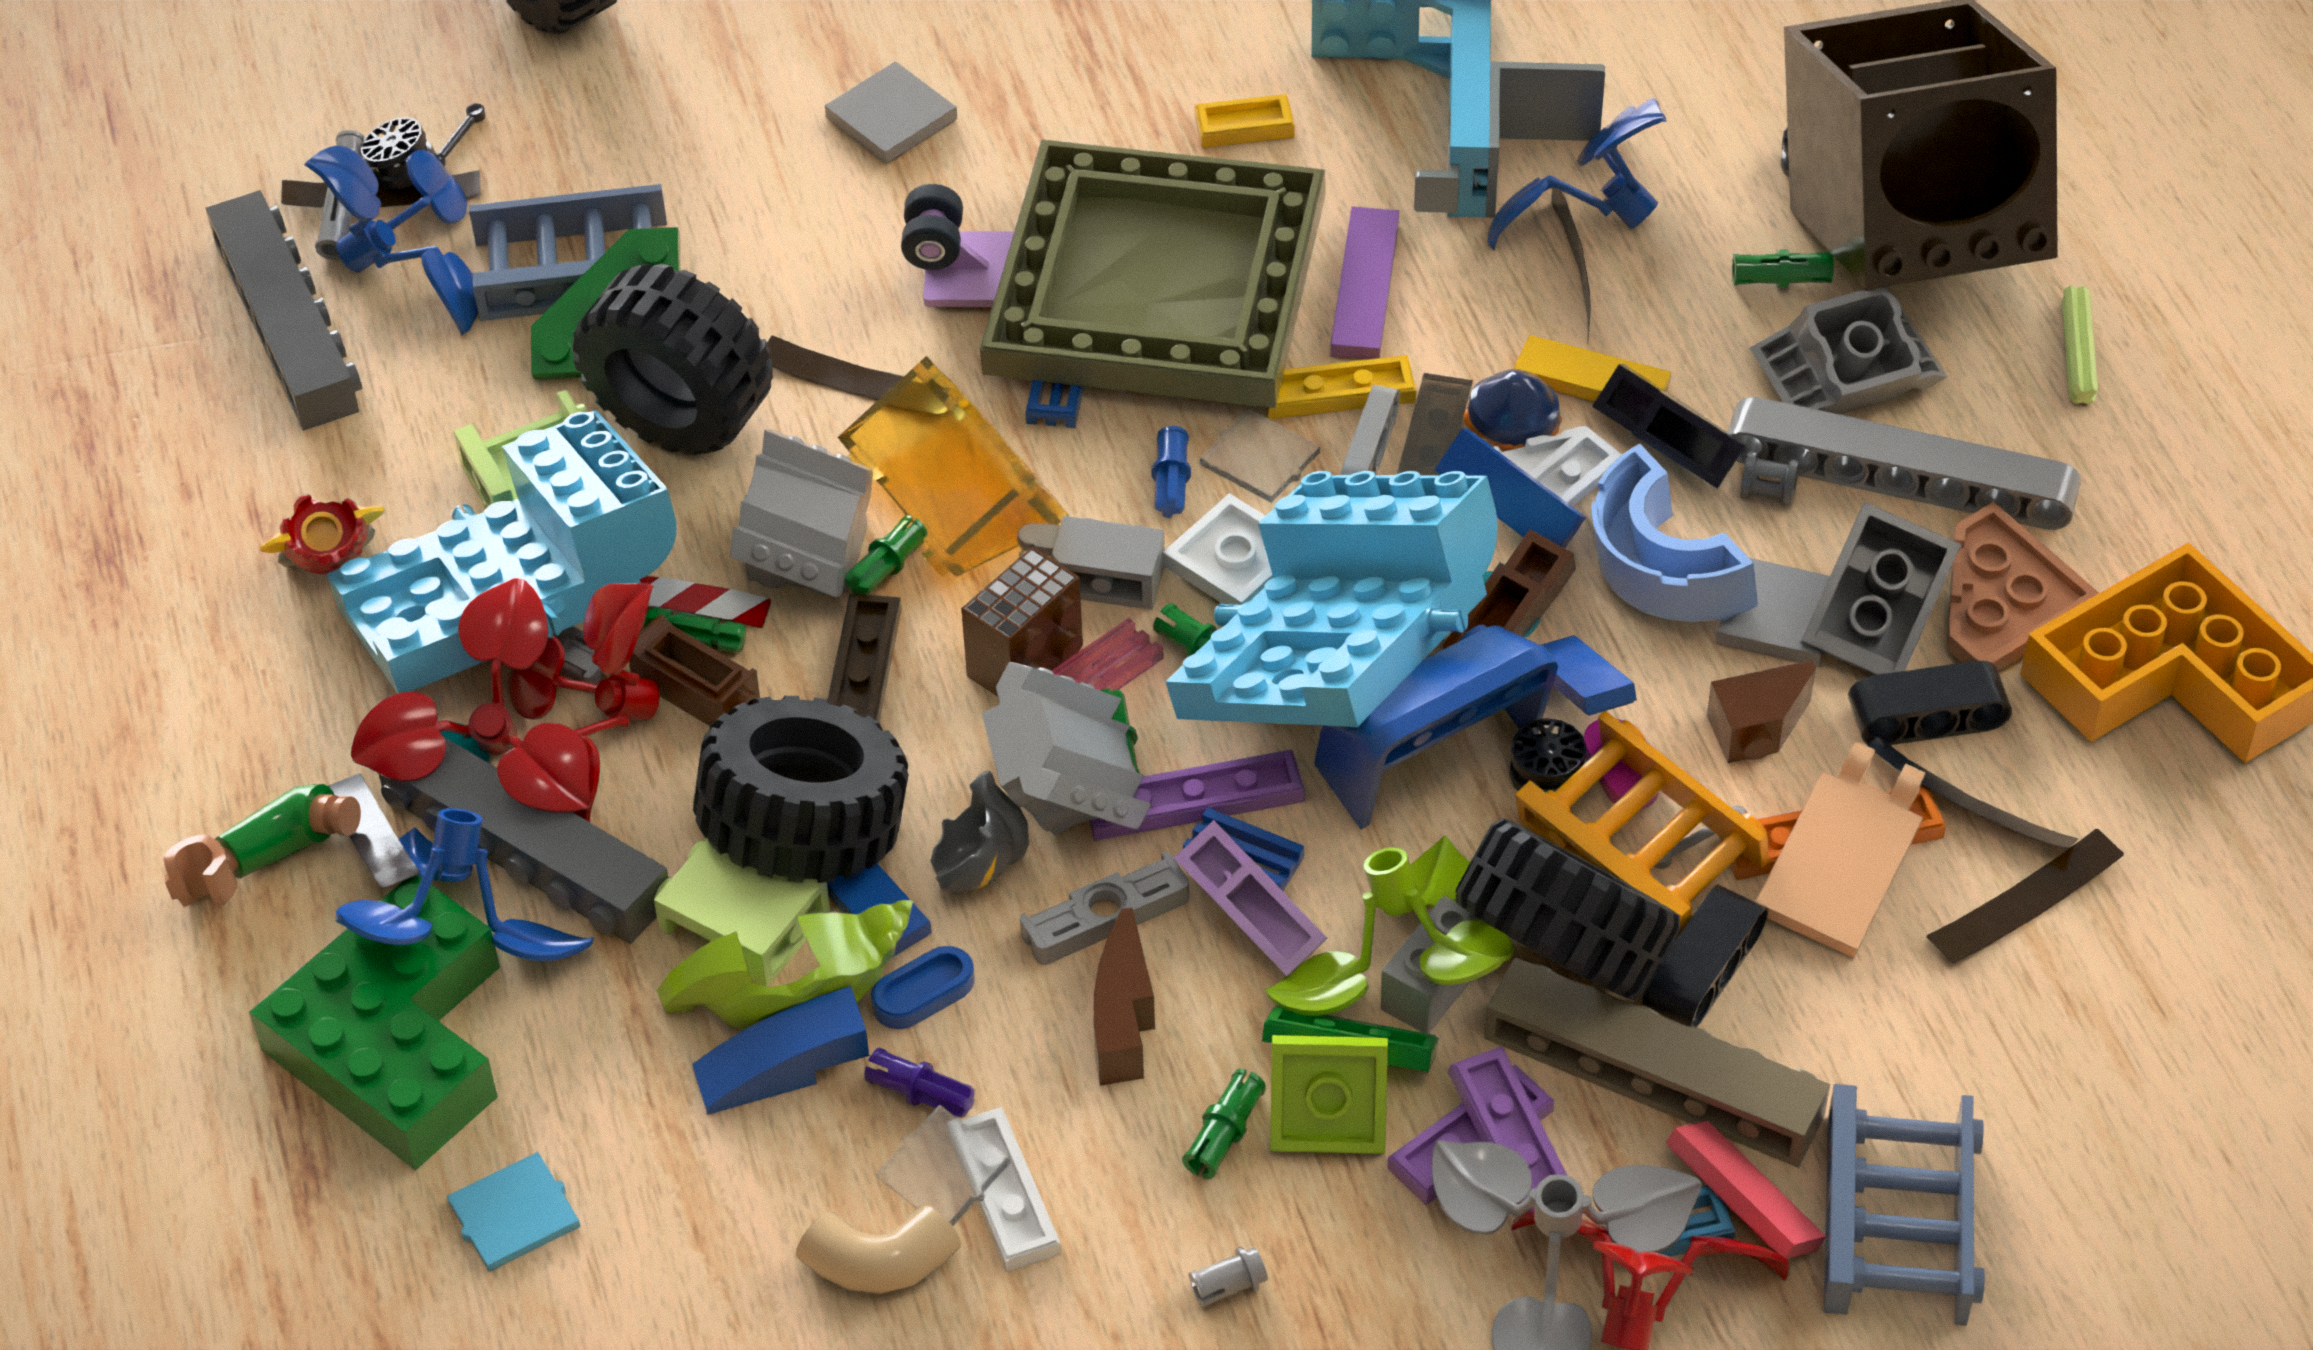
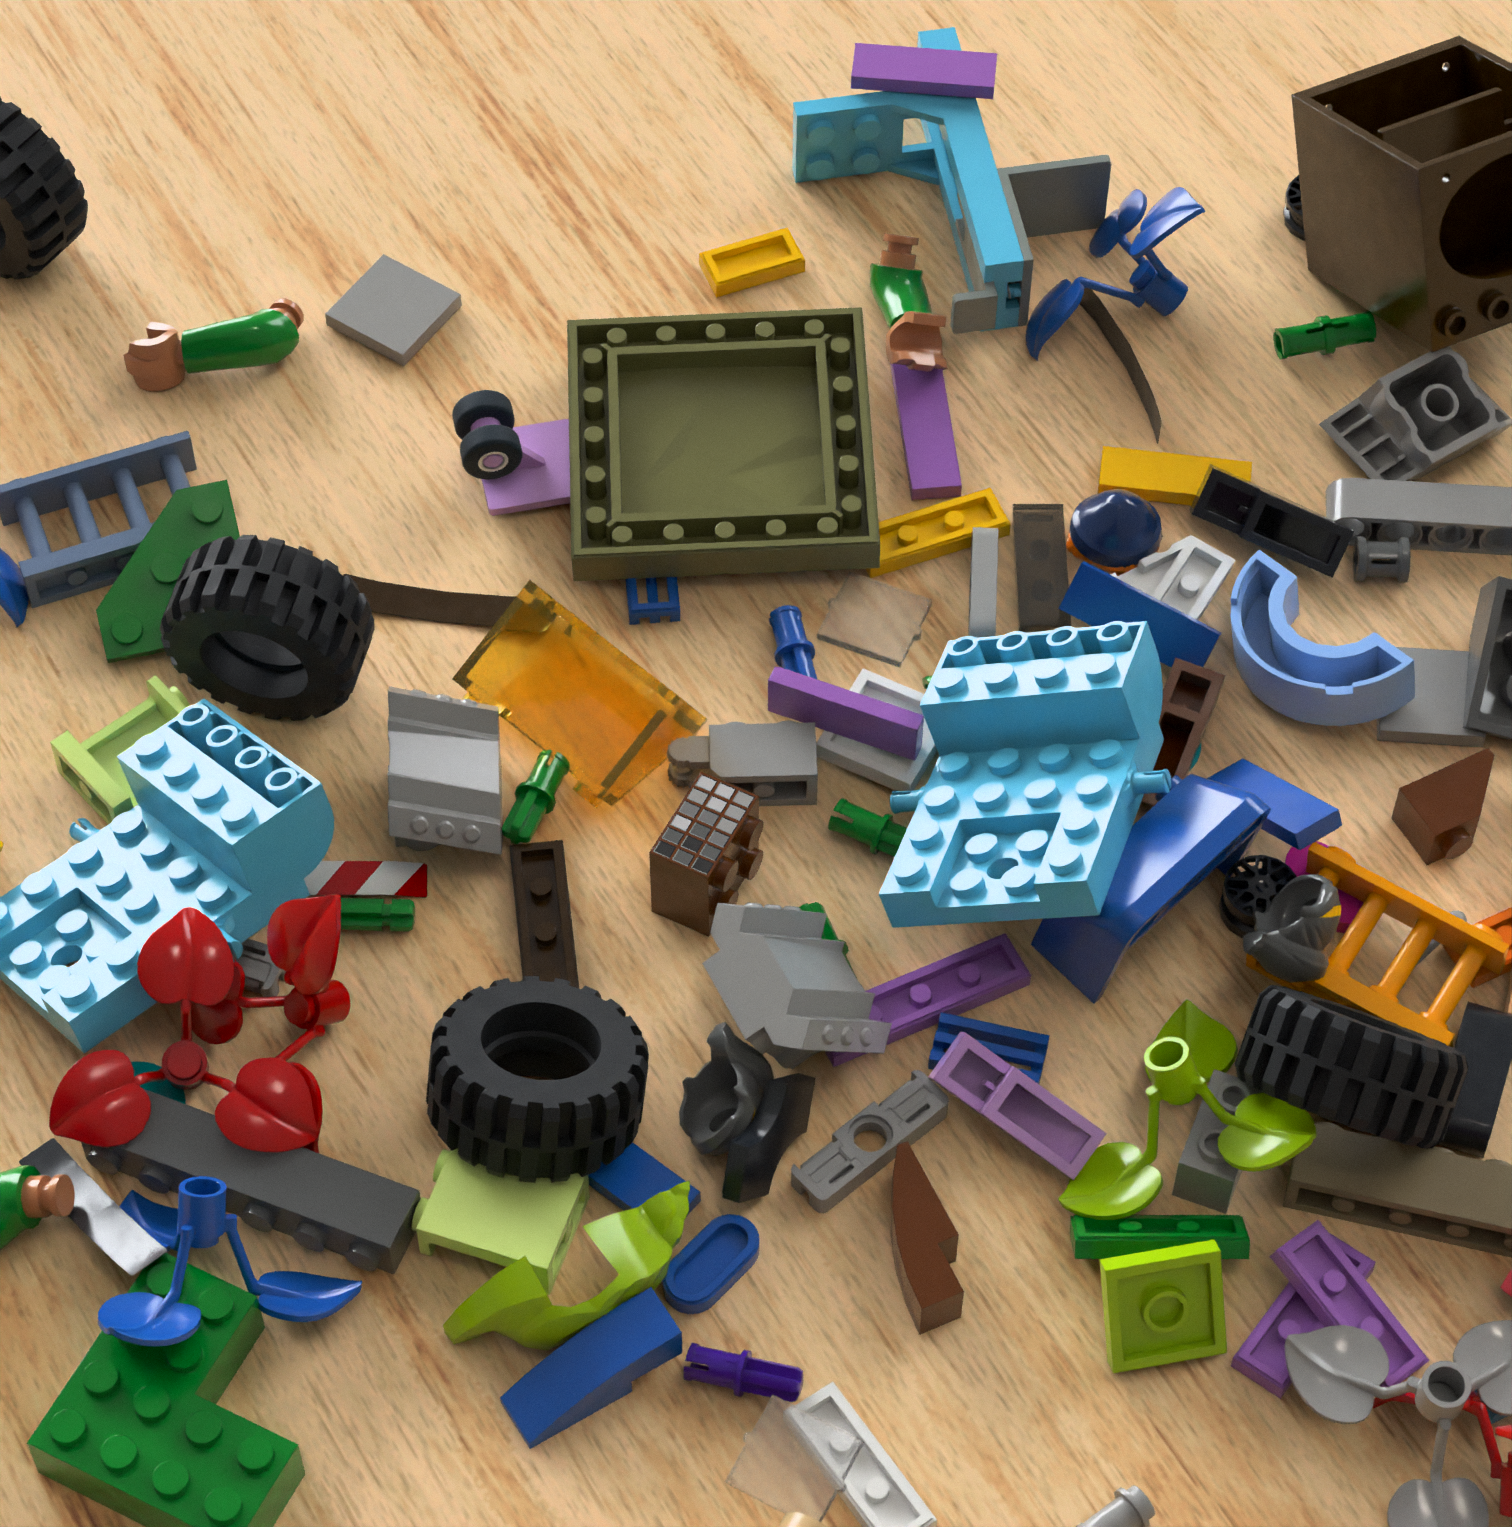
camera: 15 degrees left, 5 degrees up
(653, 660) = (407, 996): reddish brown window -> none
(726, 117) = (228, 344): none -> green piece
(1019, 871) = (759, 1148): none -> black tile
(1103, 655) = (781, 856): clear pink tile -> none
(1194, 525) = (845, 713): none -> medium lavender tile
(1224, 1123) = (1060, 1353): green pin -> none
(1374, 179) = (904, 302): none -> nougat piece
(1559, 787) = (1296, 929): none -> dark grey hair

